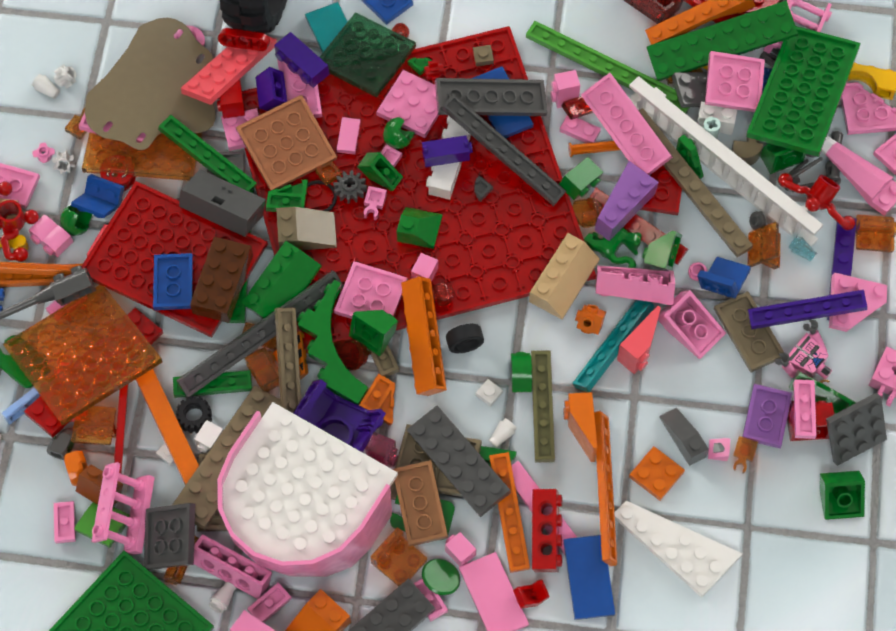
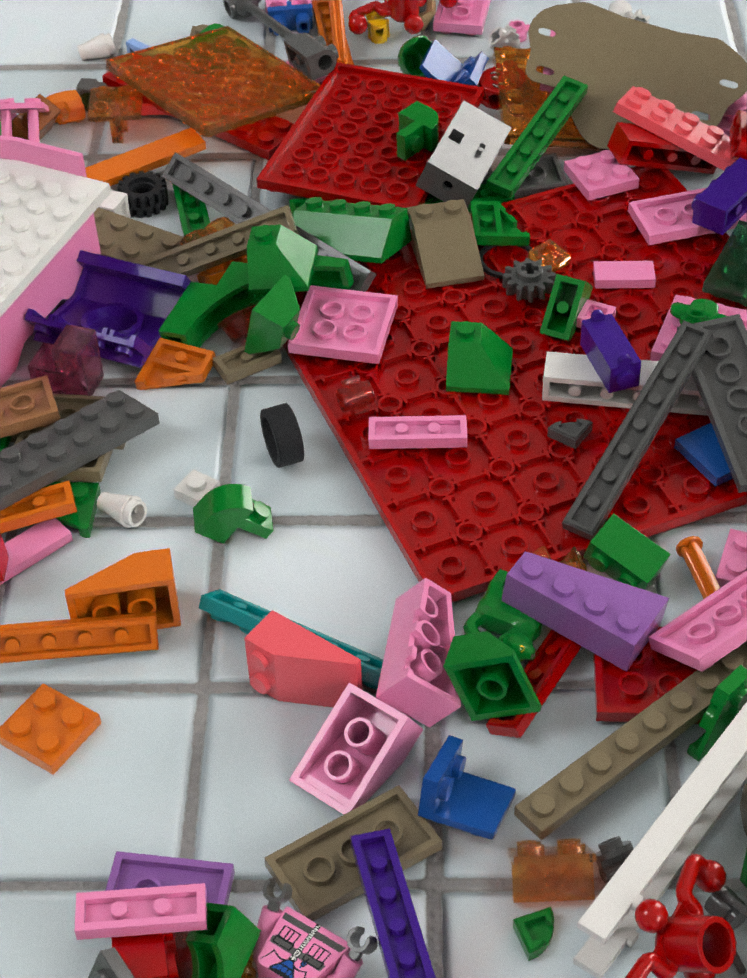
camera: 85 degrees right, 20 degrees down
(50, 235) = (385, 49): bright pink brick -> none
(121, 421) = (112, 135): red tile -> none
(173, 281) = (329, 129): blue plate -> none
(190, 221) = (417, 130): none -> green brick
(221, 279) = (335, 165): reddish brown brick -> none
(271, 88) = (670, 179): dark purple brick -> none
(286, 143) = (584, 204): nougat plate -> none
(330, 319) = (276, 252): none -> green slope
(374, 199) = (513, 310): bright pink plate -> none
(395, 136) = (636, 313): green hair -> none
(408, 102) = (698, 311): none -> green plate
(423, 336) = (276, 382): orange brick -> none
(425, 267) = (397, 373): bright pink brick -> none
(474, 265) = (417, 432): none -> bright pink plate
(542, 406) = (186, 551): olive plate -> none
(564, 276) = (416, 542): tan slope -> none
(590, 319) = (341, 597): orange brick -> none
(685, 436) = (116, 759): dark grey slope -> none
(694, 270) = (479, 758): bright pink plate -> none
(719, 449) = (94, 824): bright pink slope -> none
(744, 451) = (86, 863): clear orange plate -> none
(793, 261) = (535, 931): none -> green tile
(802, 248) = (563, 941): clear light blue cone -> none

